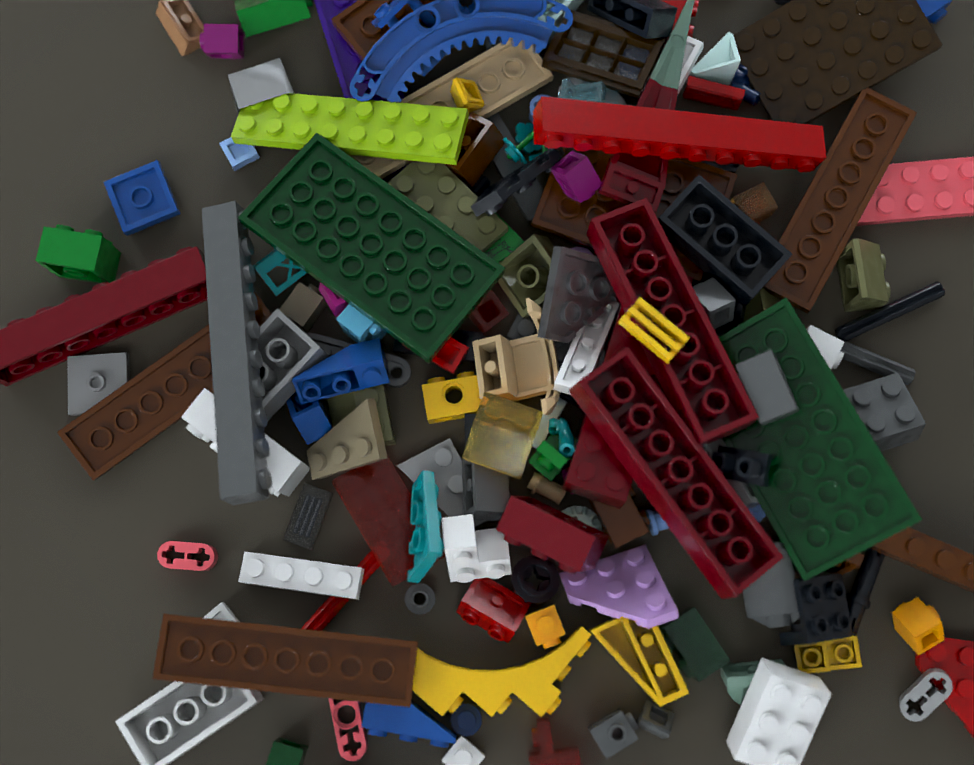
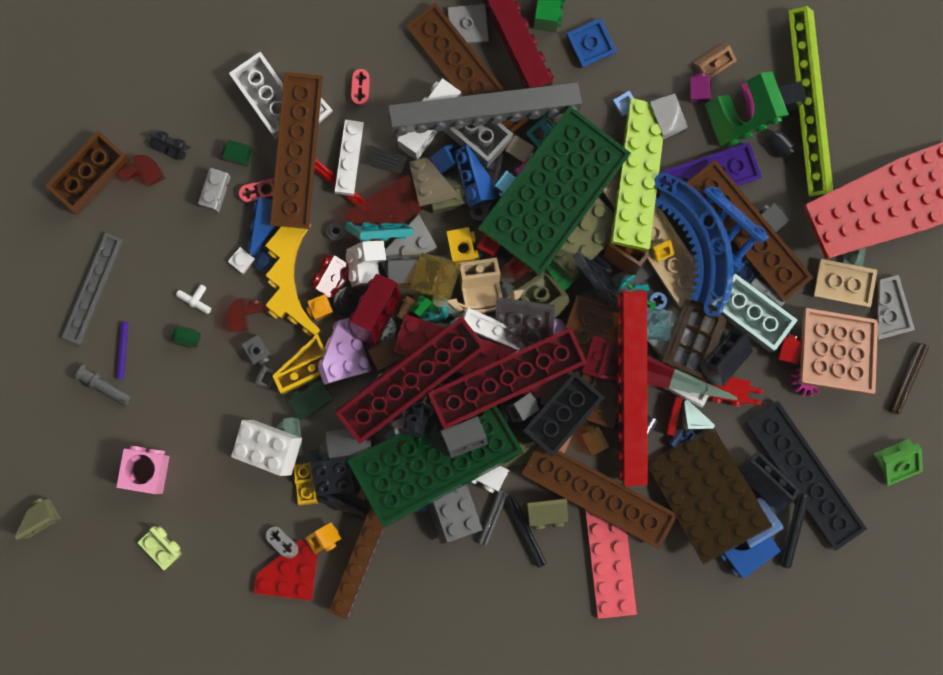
camera: 85 degrees right, 5 degrees up
(576, 176) = (604, 320): magenta brick -> none
(662, 322) = (502, 370): yellow tile -> none

